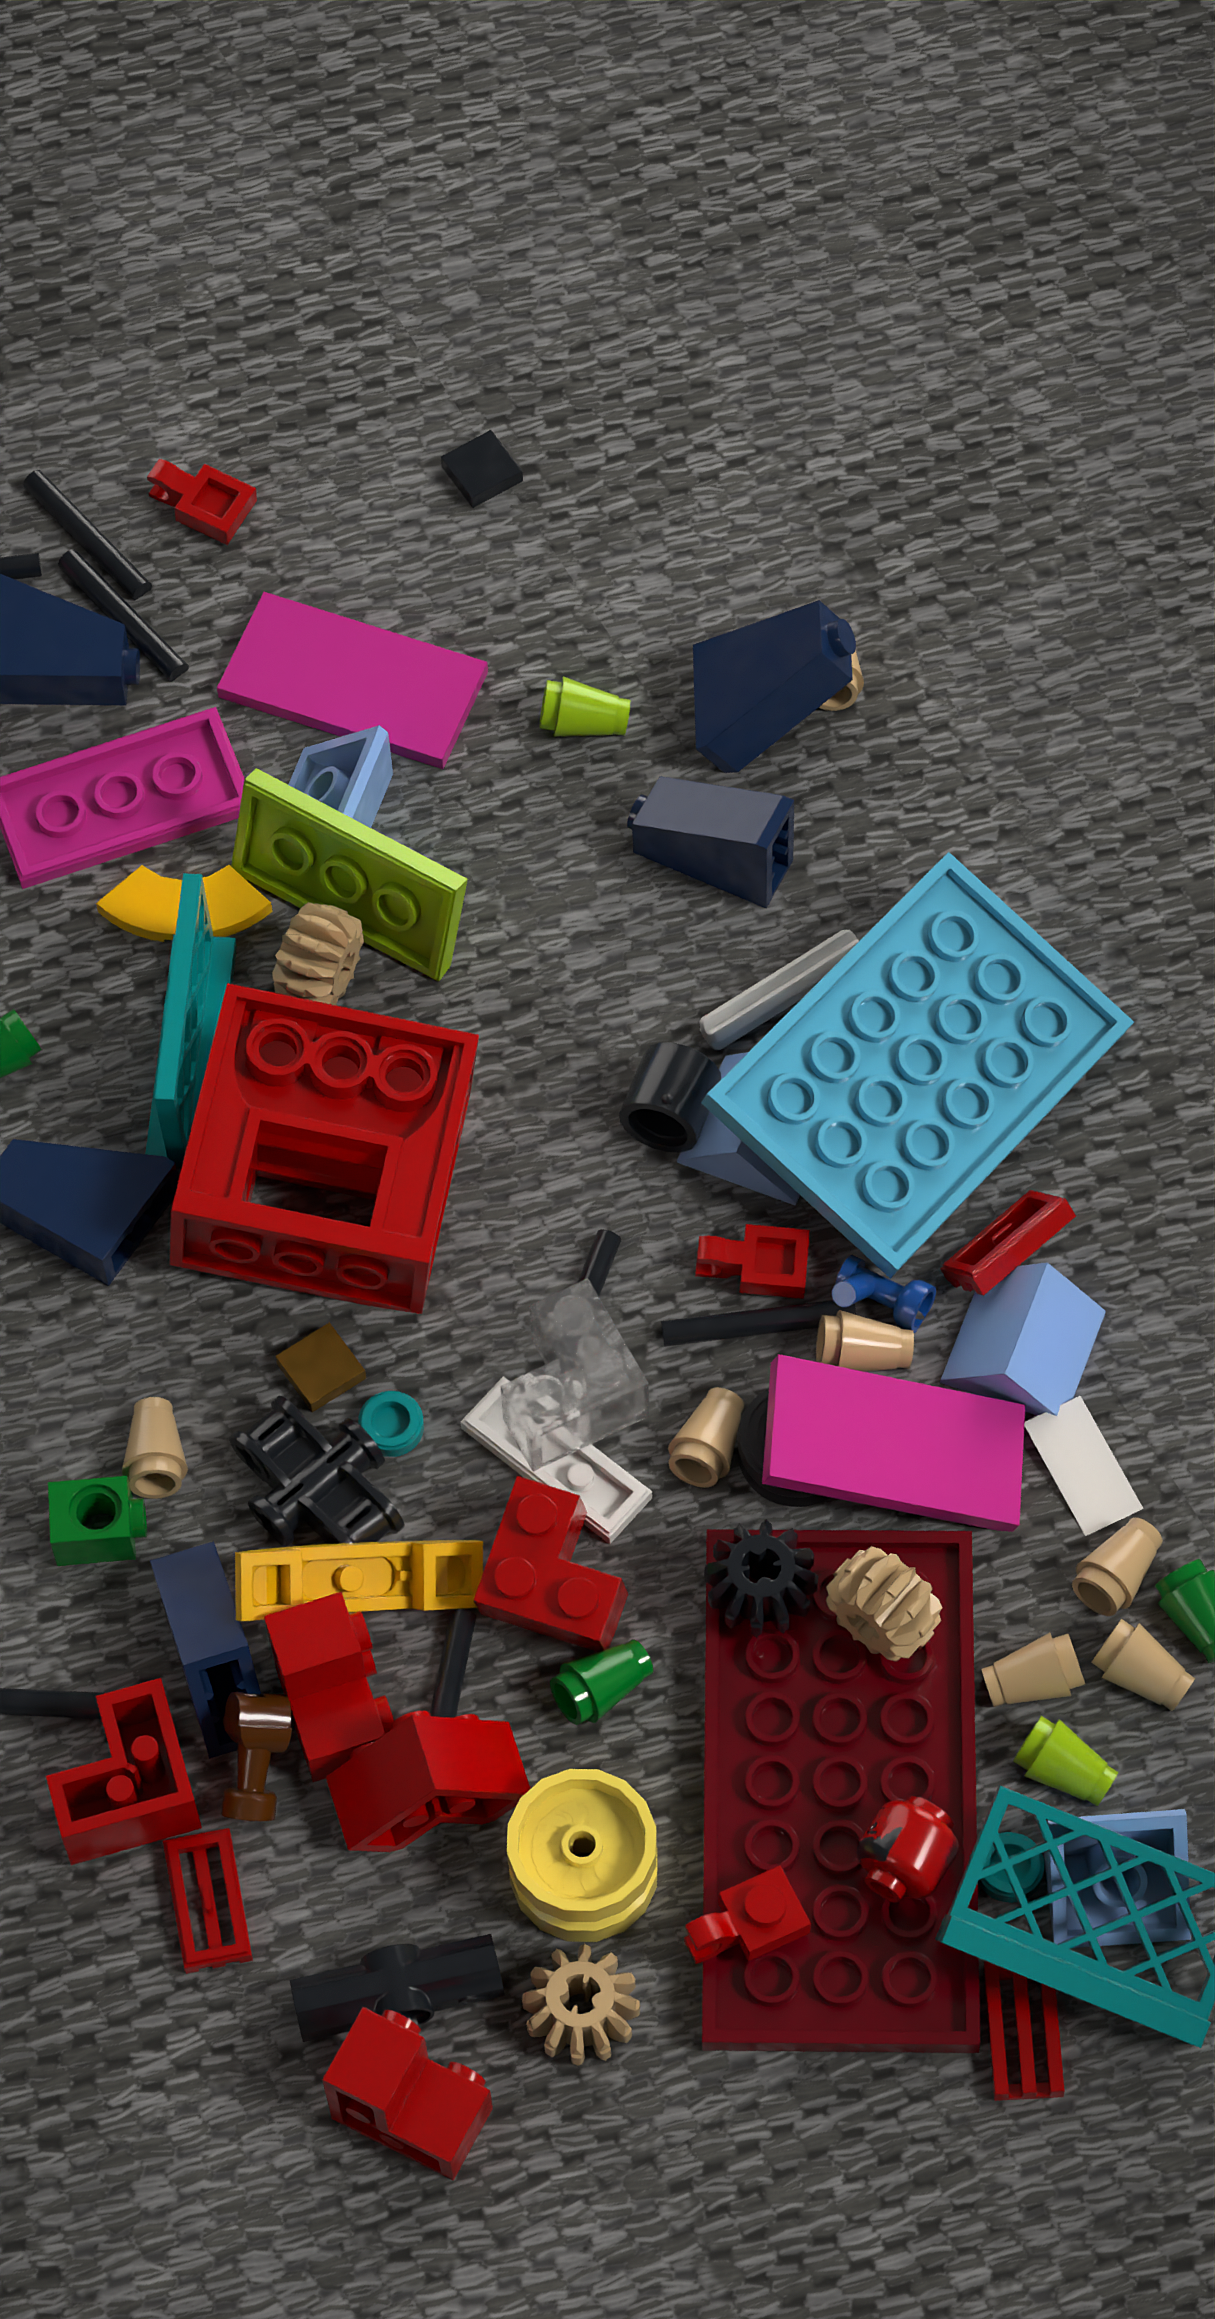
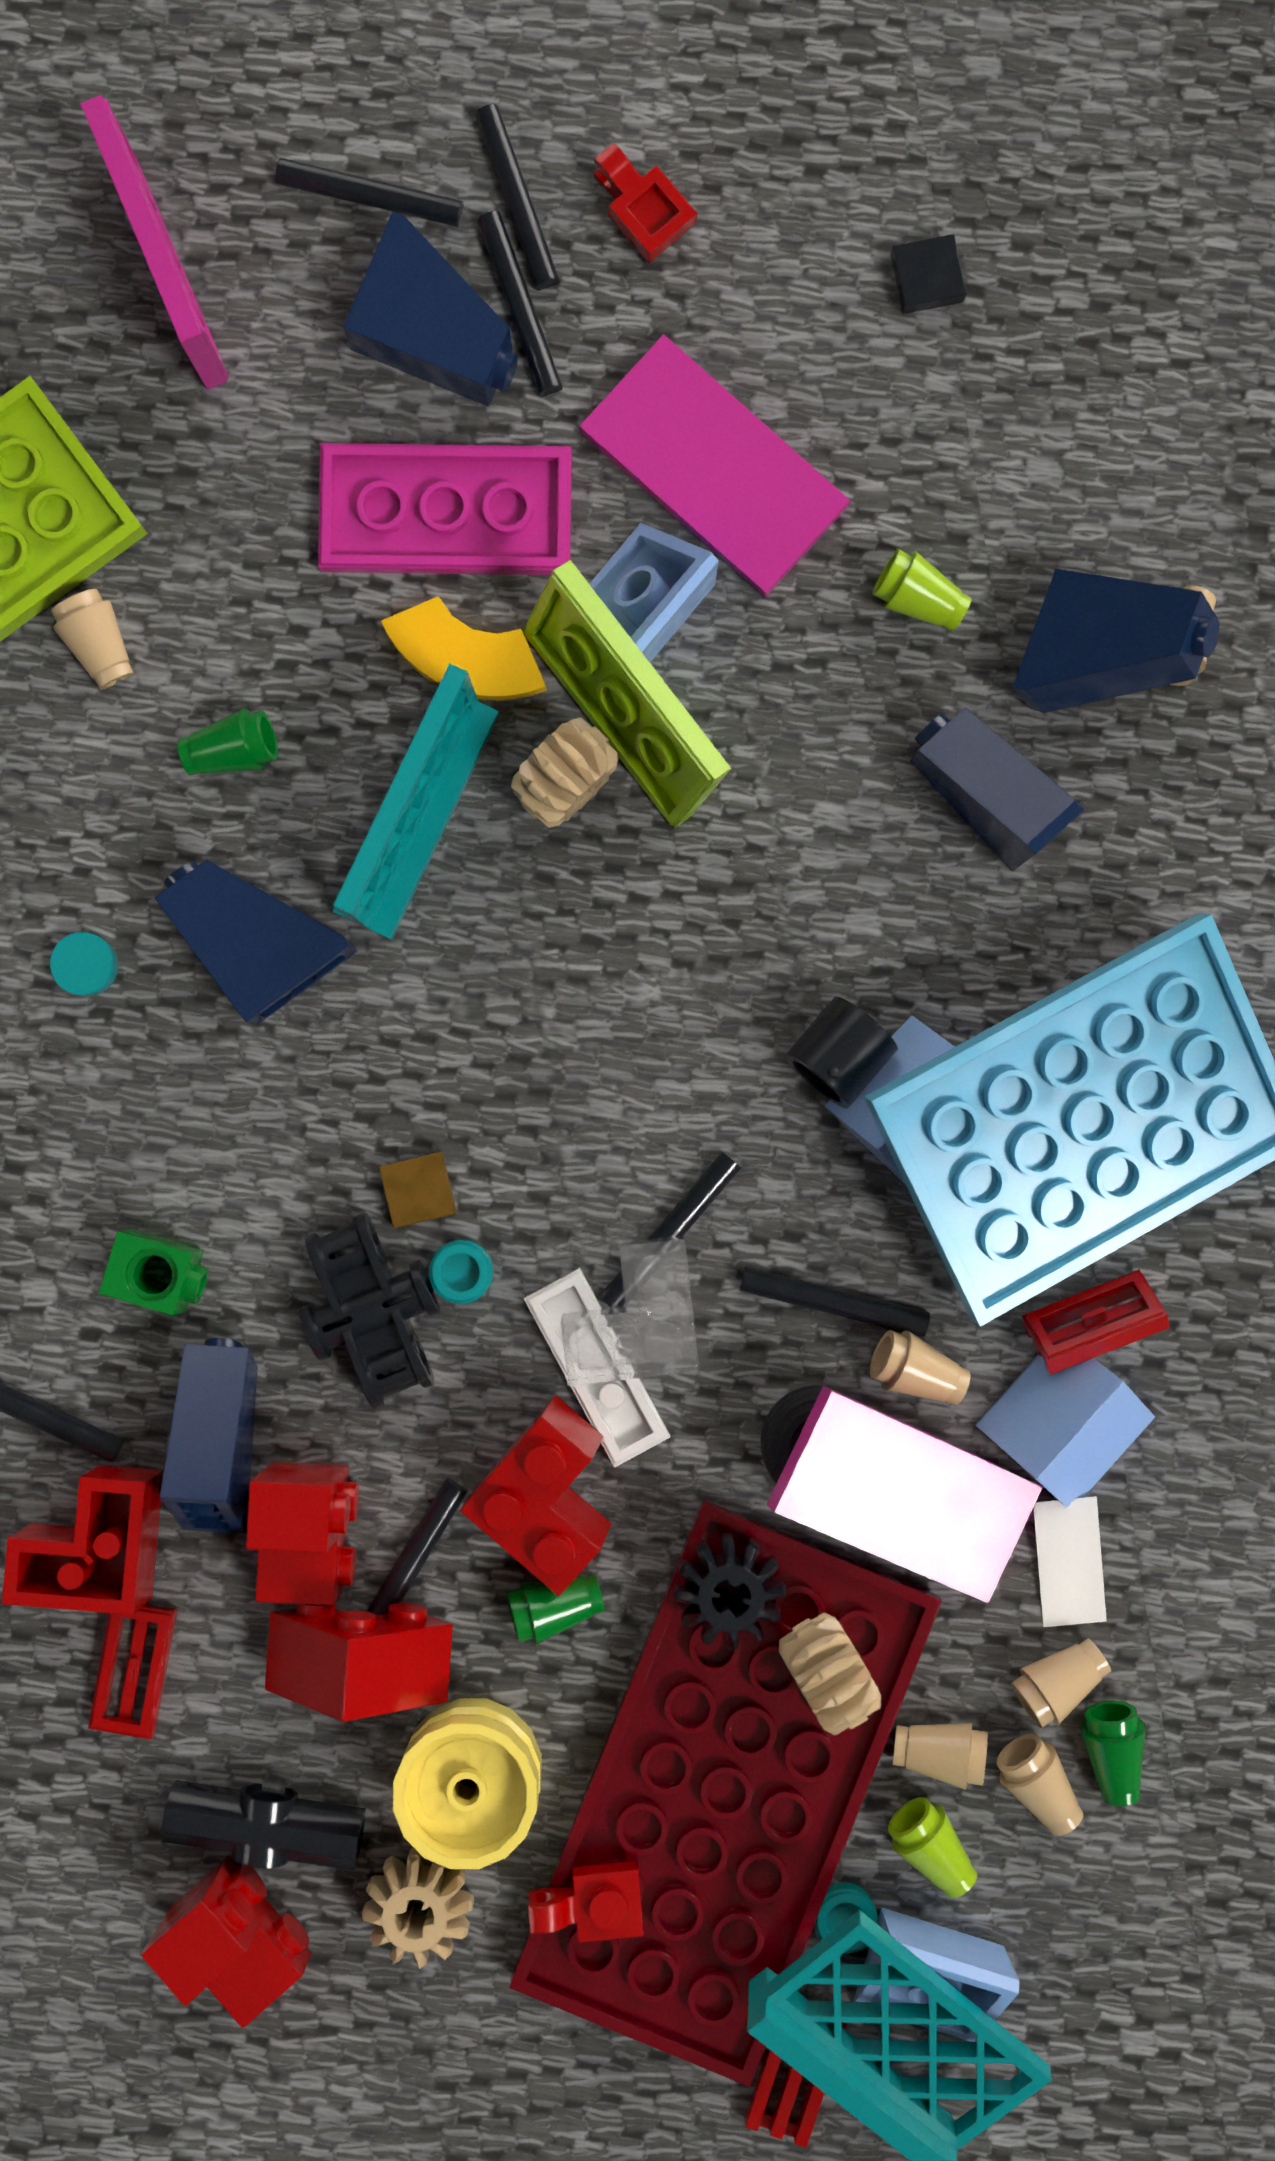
camera: 20 degrees right, 25 degrees up
(154, 1450) = (236, 1216): tan cone -> none
(259, 1728) = (219, 1554): reddish brown leg -> none
(333, 1107) = (482, 966): red piece -> none
(367, 1573) = (361, 1429): yellow slope -> none
(707, 1439) = (741, 1406): tan cone -> none
(768, 1260) = (864, 1248): red plate -> none
(774, 992) = (992, 968): white axle -> none
(857, 1283) = (947, 1309): blue piece -> none
(907, 1849) = (756, 1907): red head -> none

